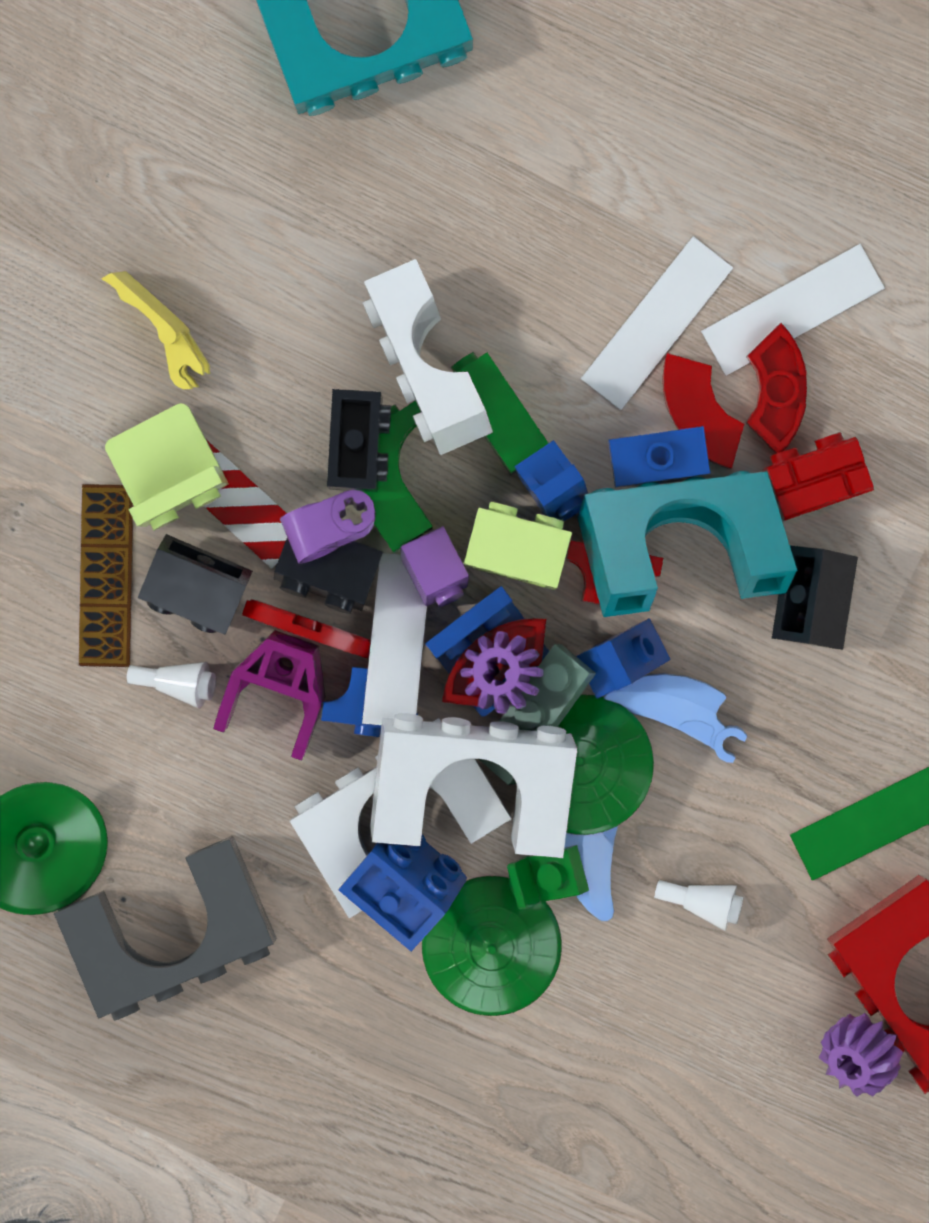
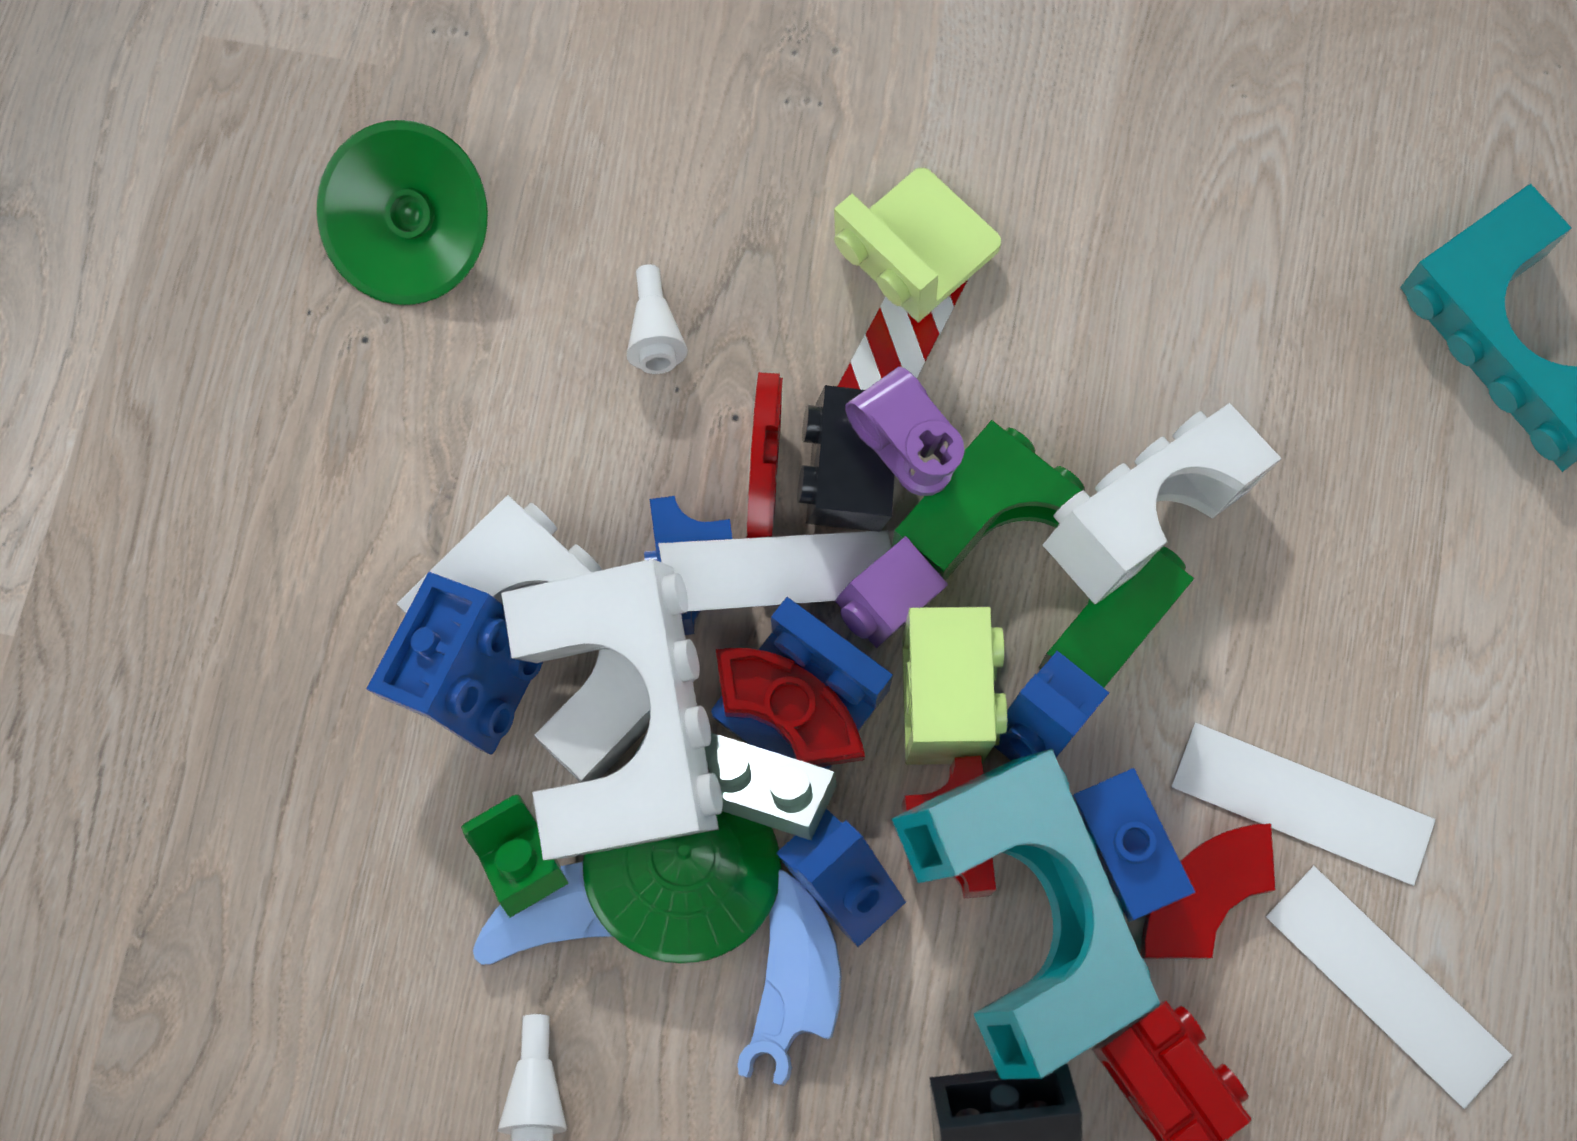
camera: 75 degrees right, 15 degrees down
(105, 576) = (753, 217): sticker -> none
(121, 977) = (358, 469): dark grey arch -> none
(178, 343) = (1078, 214): light yellow arm -> none
(194, 585) = (780, 306): black brick -> none
(266, 669) = (705, 446): magenta piece -> none
(355, 440) = (1028, 431): black brick -> none
(486, 668) = (776, 686): medium lavender gear -> none
(490, 952) = (395, 811): green hat -> none
(781, 389) = (1275, 998): red tile -> none

